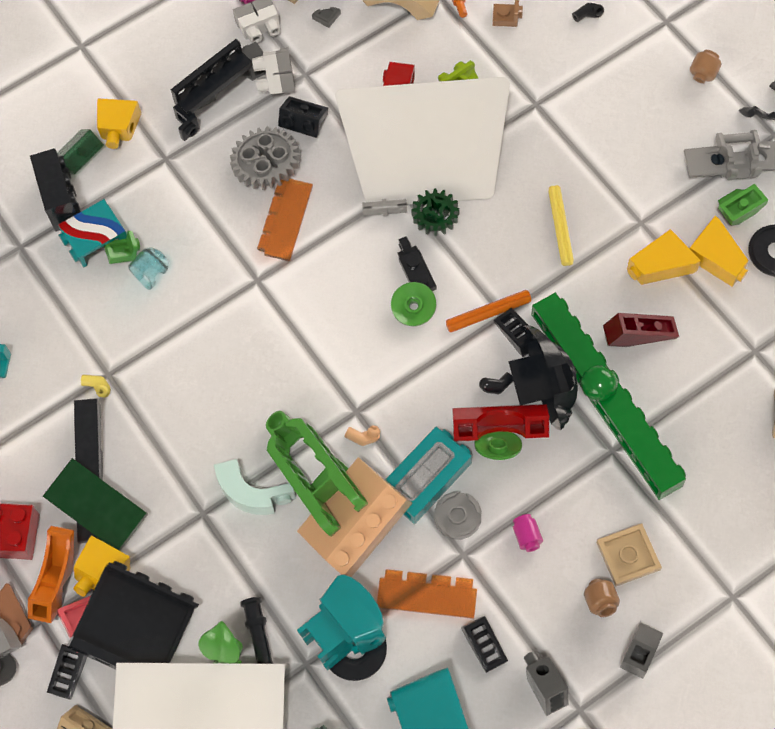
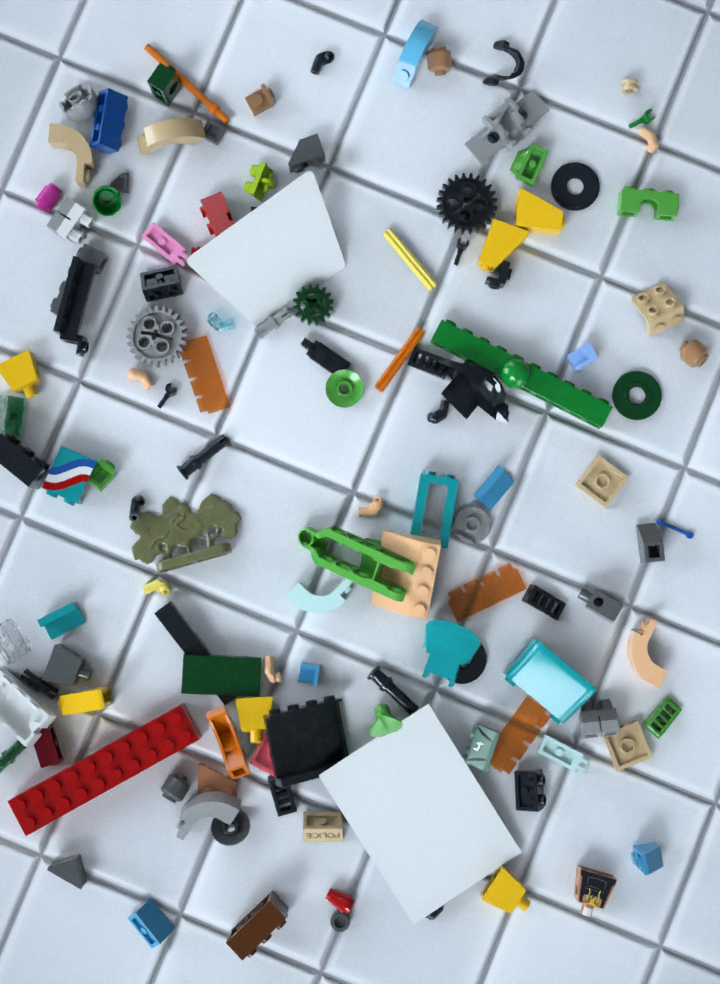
camera: 40 degrees left, 20 degrees up
(132, 297) = (136, 502): none -> black arm
(146, 532) = (269, 670): none -> light nougat arm
(148, 263) = (132, 476): clear light blue helmet -> none
(158, 341) = (178, 527): none -> olive plant
(185, 561) = (309, 673): none -> dark azure panel
(219, 179) = (137, 374): none -> light nougat arm
(219, 289) = (195, 462): none -> black pin
(240, 215) = (168, 394): none -> black hand
(278, 71) = (121, 260): hips -> none
(303, 19) = (106, 200): none -> green hair
(328, 82) = (165, 244): none -> bright pink hinge
(331, 181) = (218, 324): none -> clear light blue arm
(444, 18) = (214, 131): none -> dark grey tile
(499, 445) = (470, 452): bright green dish -> none
(505, 490) = (494, 488): none -> dark azure panel
(523, 78) = (307, 153): none -> dark grey slope
(525, 420) = (480, 428): red arch -> none
(527, 533) = (527, 509): dark pink brick -> none
(601, 597) = (603, 524): medium nougat head -> none
(623, 244) = (461, 248): none -> black hand
(639, 329) = (515, 310): dark red slope -> none
(647, 289) = (504, 274): none -> black bracket
(652, 204) = (456, 191): none -> black gear
(683, 41) = (413, 52): none -> medium azure arch
(684, 416) = (582, 357): none -> light blue panel
(695, 671) = (689, 534): none -> blue hinge
(722, 508) = (621, 399): none -> dark green piece

